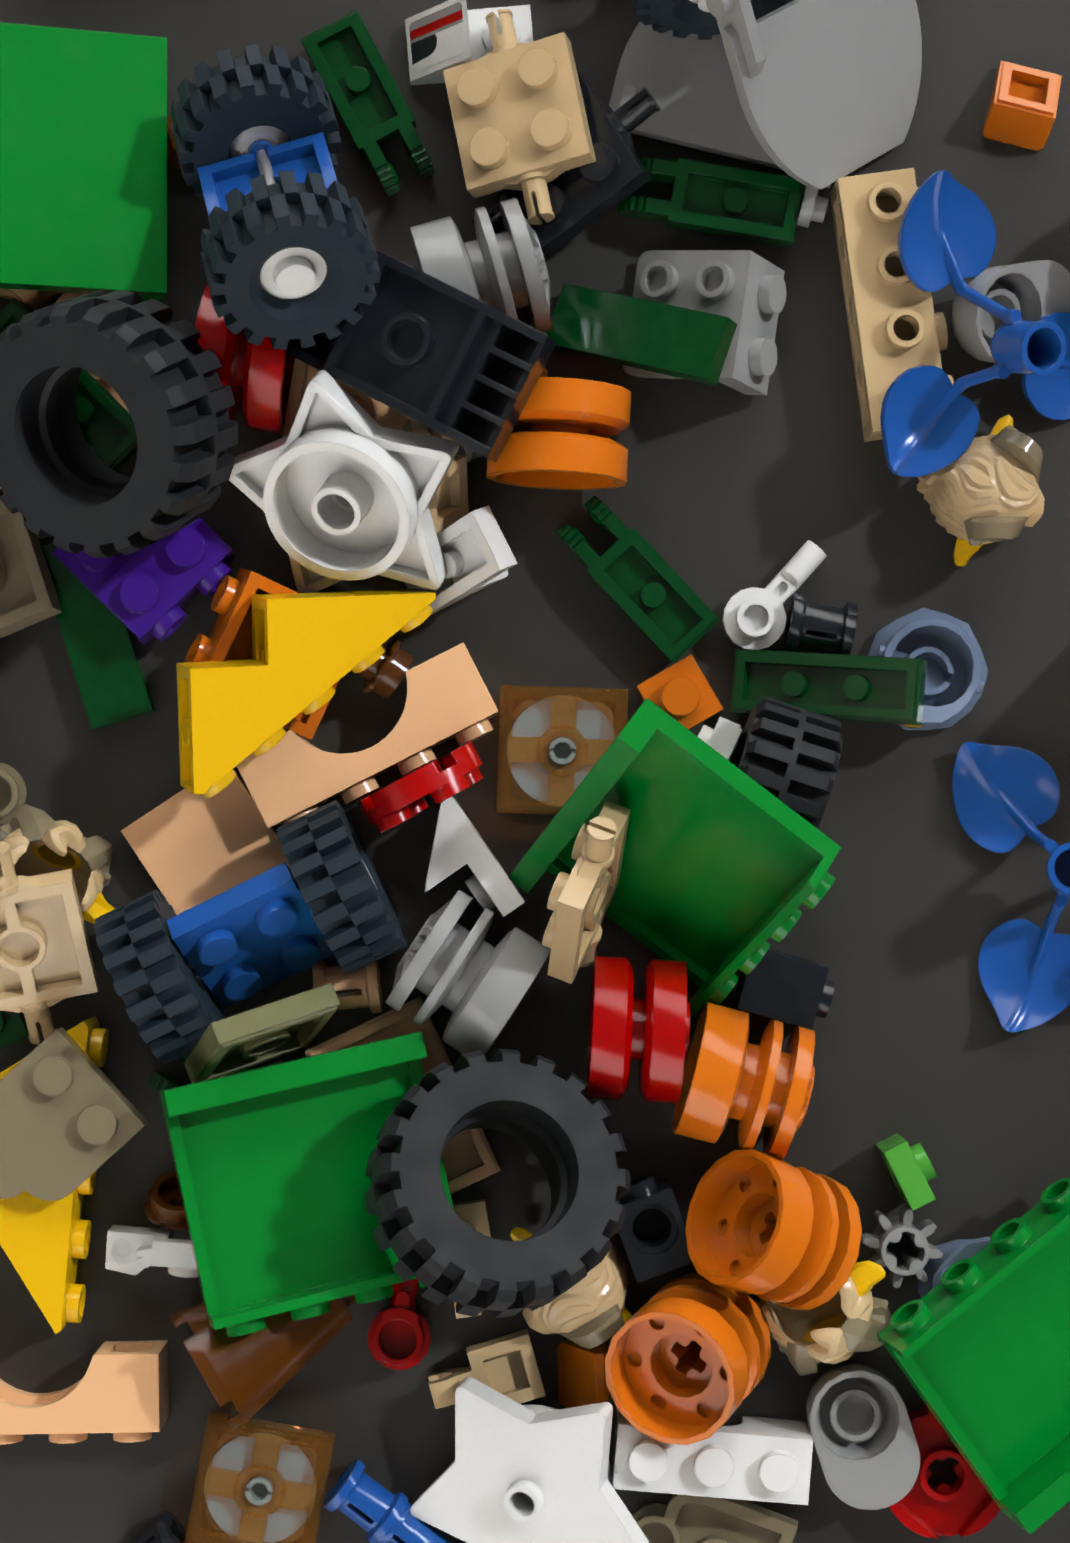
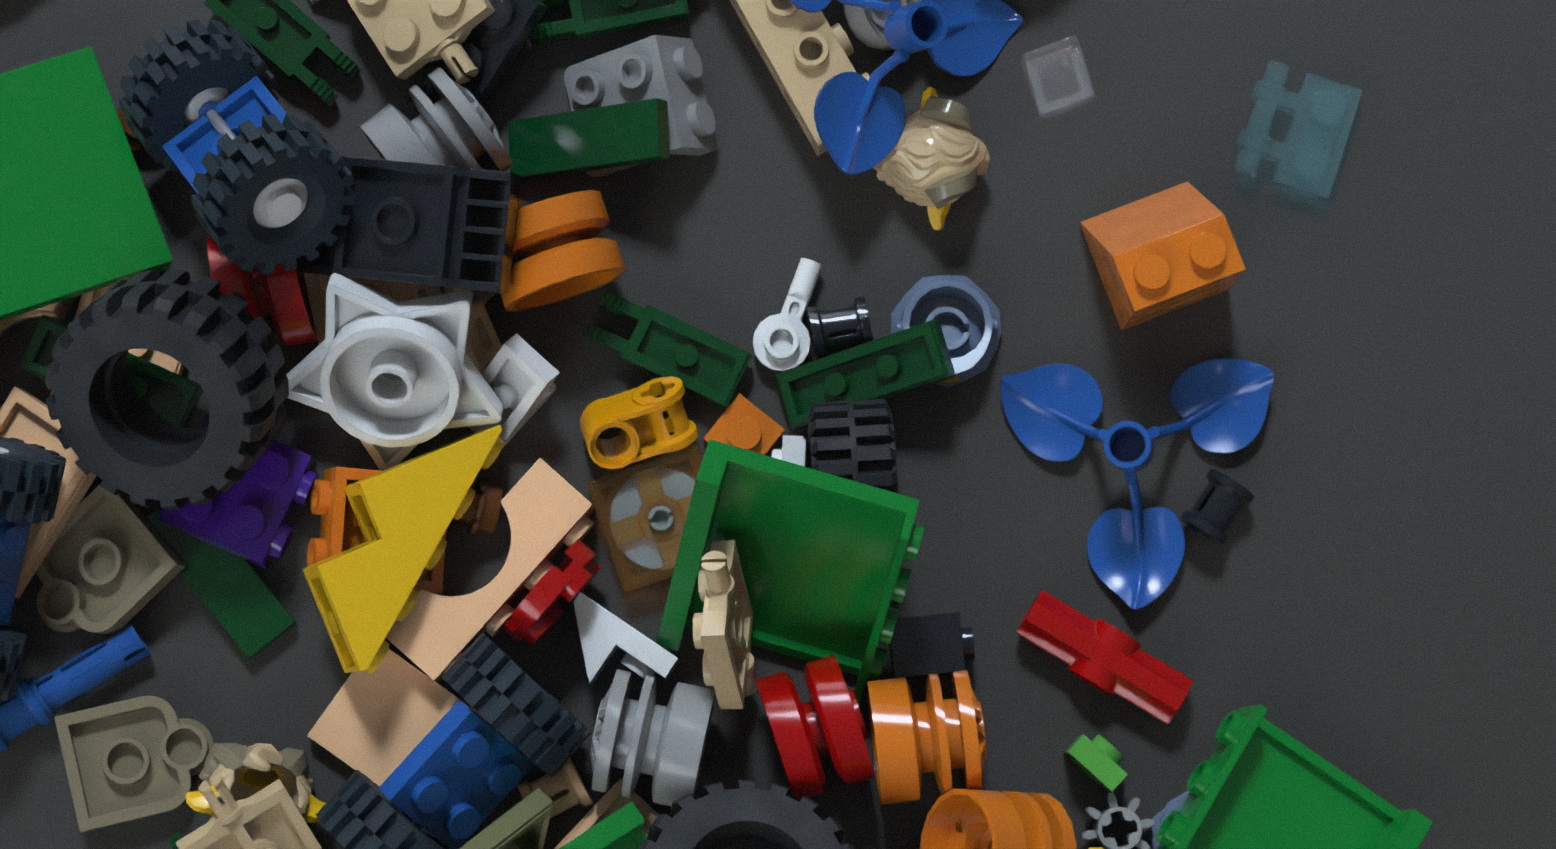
camera: 20 degrees left, 5 degrees down
(580, 646) = (642, 423): none -> light orange piece
(956, 1067) = (1104, 657): none -> red piece

